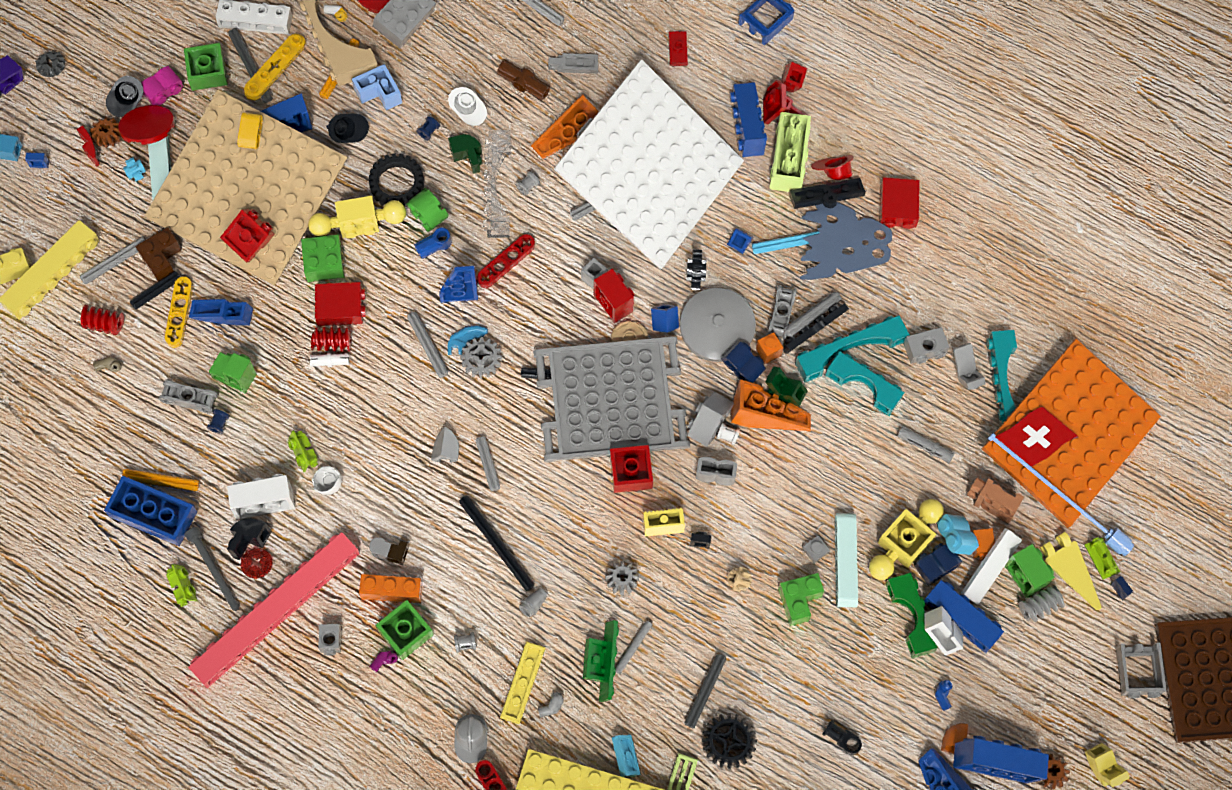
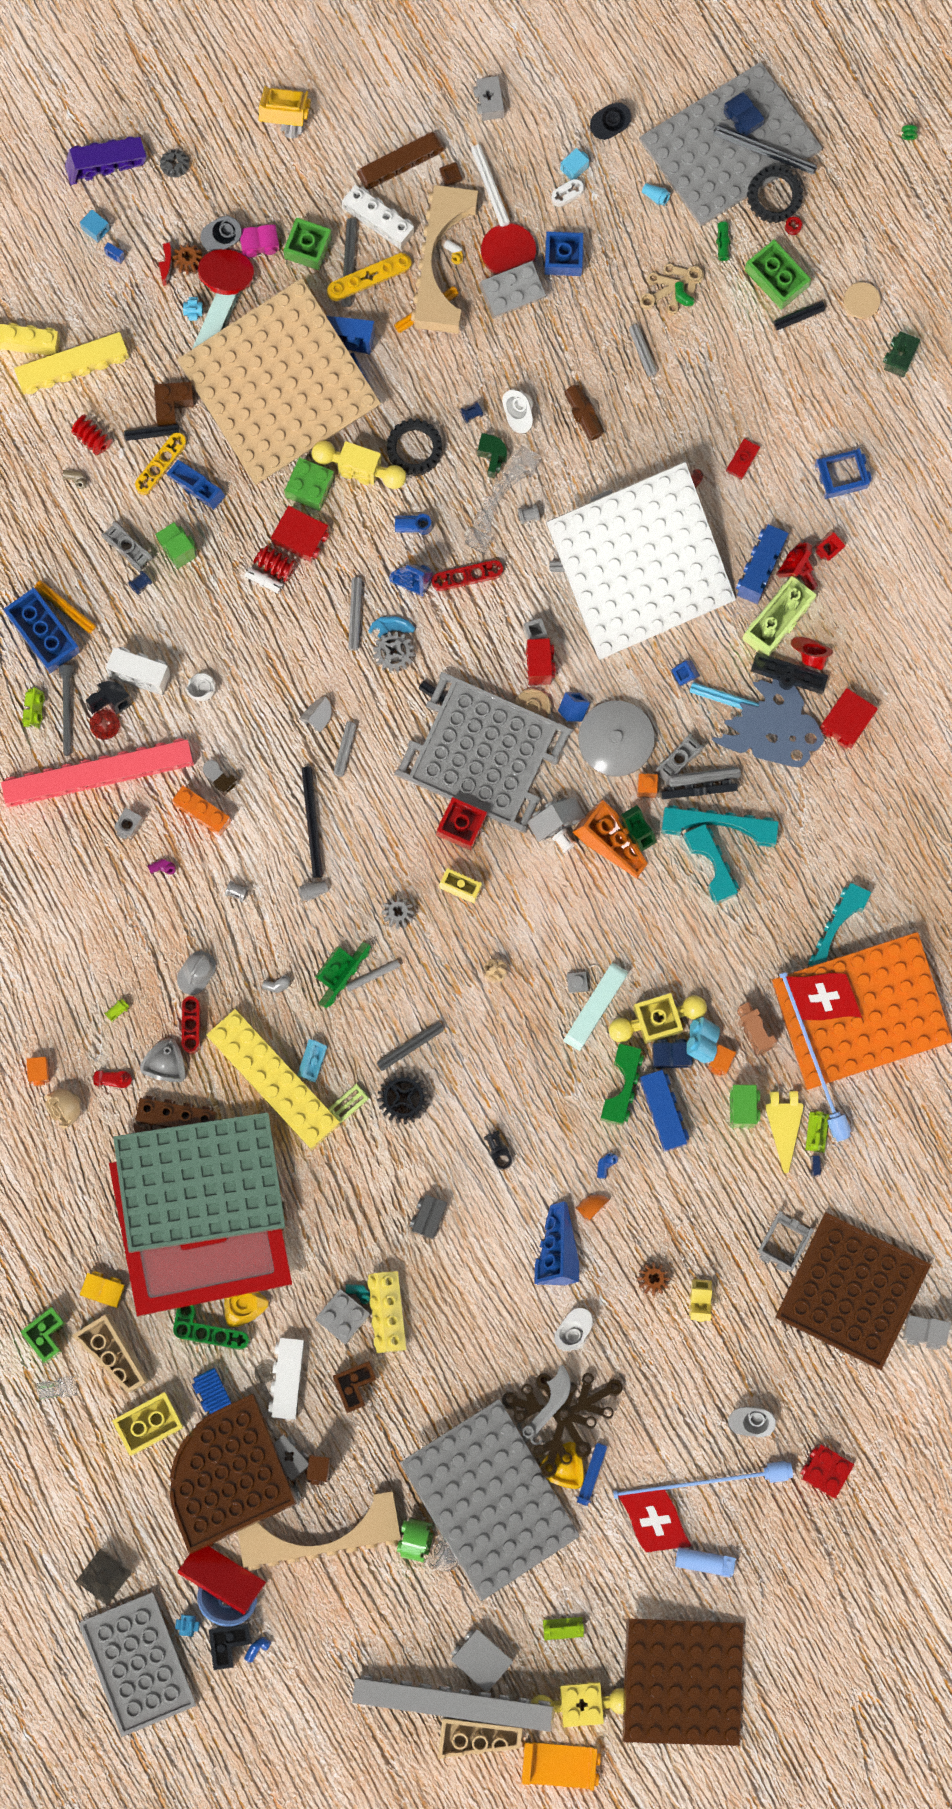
camera: 30 degrees right, 10 degrees up
(110, 262) = (129, 384): light grey axle -> none
(247, 234) = (255, 428): red plate -> none
(250, 130) = (307, 334): yellow beam -> none
(304, 458) = (194, 655): lime hinge -> none
(348, 128) = (399, 373): black piece -> none
(377, 84) = (448, 344): light blue brick -> none
(404, 630) = (192, 852): bright green brick -> none
(427, 209) = (424, 490): bright green brick -> none
(522, 683) = (265, 952): light yellow tile -> none
(565, 128) = (594, 481): orange wedge -> none
(574, 63) = (639, 422): light grey hinge -> none
(696, 269) = (625, 679): black gear -> none
(700, 539) = (483, 918): black plate -> none
(720, 471) = (536, 870): light grey brick -> none
(743, 362) = (615, 786): dark blue brick -> none
(795, 597) = (535, 1010): bright green brick -> none
(925, 444) = (731, 951): light grey pin -> none
(934, 338) = (797, 858): light grey brick -> none
(943, 630) = (635, 1113): white piece -> none
(966, 367) = (808, 902): light grey bracket -> none
(991, 566) = (713, 1083): white tile -> none
(1001, 760) = (613, 1244): blue brick -> none
(1041, 602) = (737, 1139): light grey piece -> none

